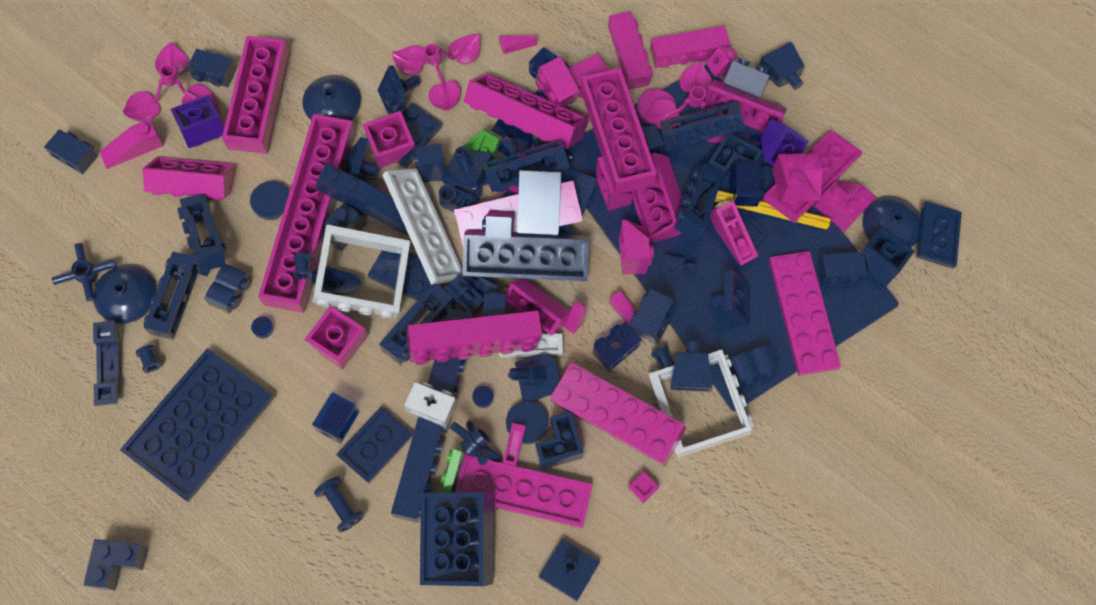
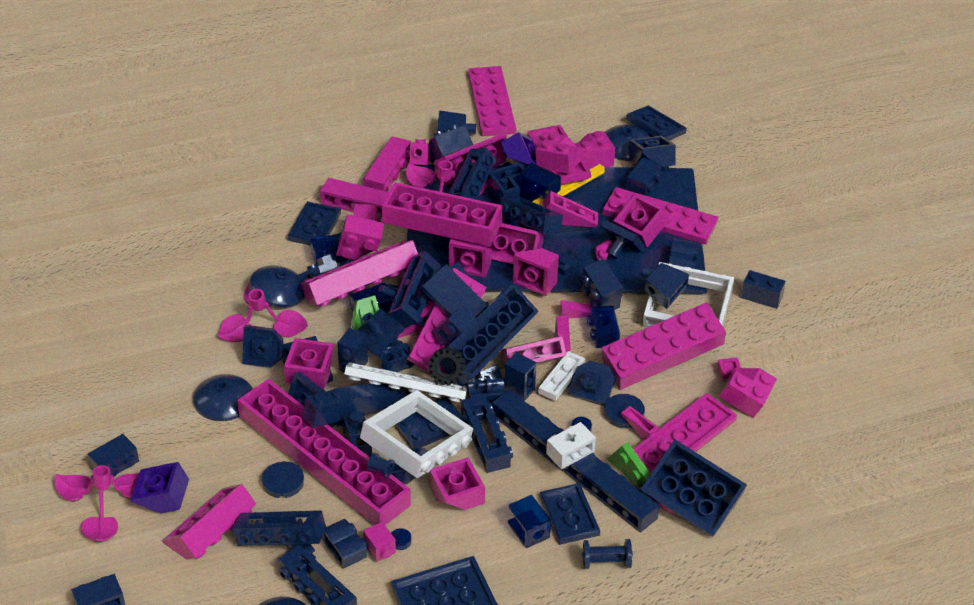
camera: 55 degrees left, 25 degrees down
(131, 143) = (134, 549): dark pink slope -> none
(240, 314) = (380, 541): none -> dark pink brick
(256, 95) = (174, 435): dark pink brick -> none
(450, 239) = (444, 378): none -> black tyre
(467, 64) = (278, 284): none -> dark blue dish
(473, 337) = (537, 389): dark pink brick -> none
(476, 442) = (621, 435): dark blue bar -> none
(511, 76) = (325, 264): none -> dark blue plate
(514, 43) = (285, 257): dark pink piece -> none
(565, 445) = (661, 390): dark blue brick -> none
(569, 570) = (763, 443): dark blue tile -> none
(577, 37) = (314, 222): none -> dark blue tile
(620, 520) = (748, 389): none -> dark pink slope
(663, 357) = (629, 309): dark blue bush -> none
(711, 288) = (600, 250): none -> dark pink arm
(770, 301) = (642, 219): none -> dark pink slope
(771, 463) = (763, 289): none -> dark blue brick
(853, 75) = (491, 101): none -> dark pink plate

